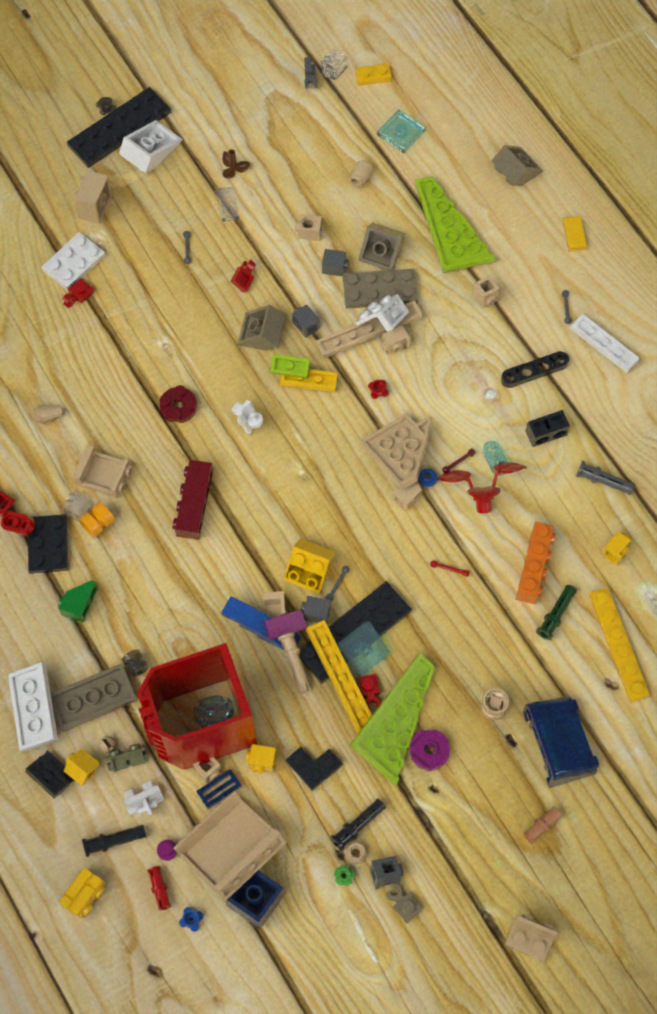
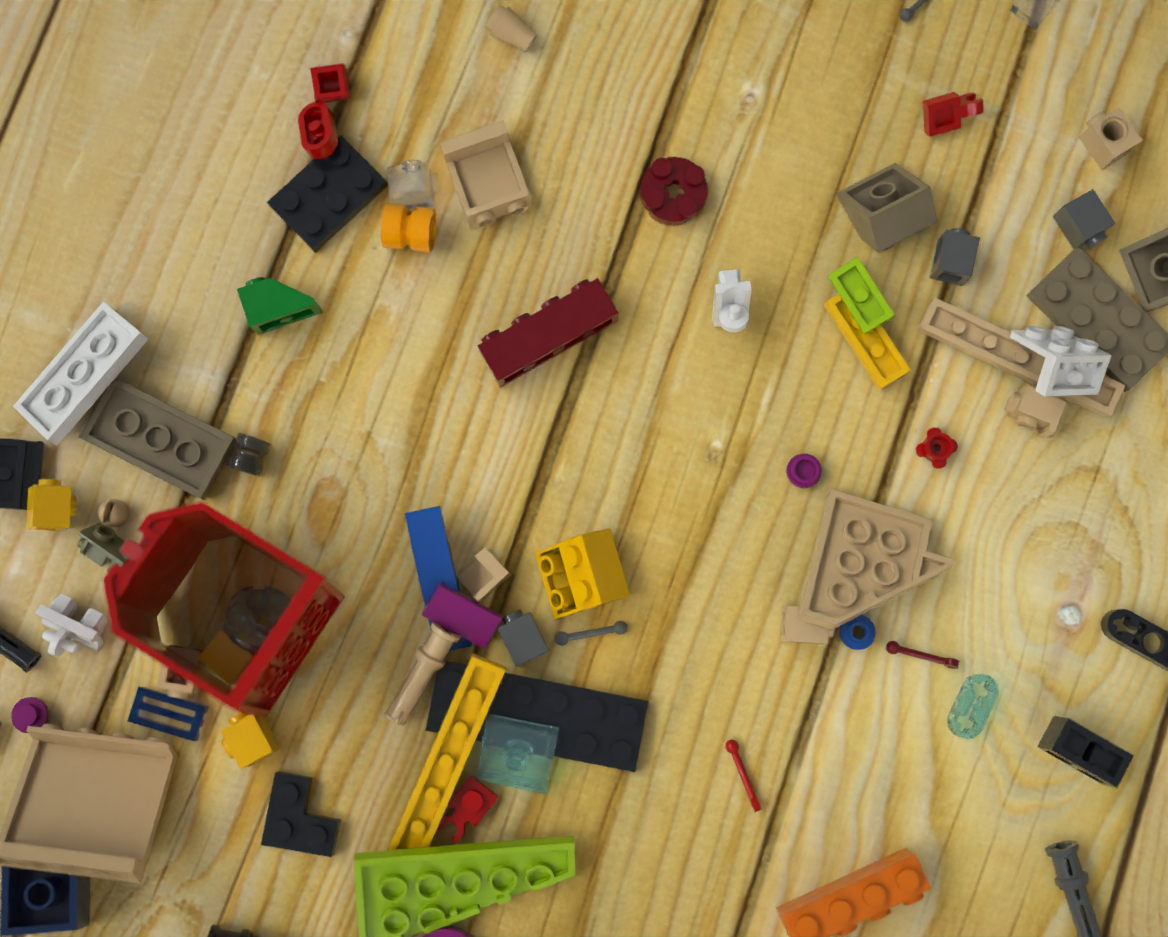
camera: 55 degrees right, 15 degrees up
(342, 446) = (803, 471): none -> magenta plate
(485, 494) = (886, 746): red plant -> none

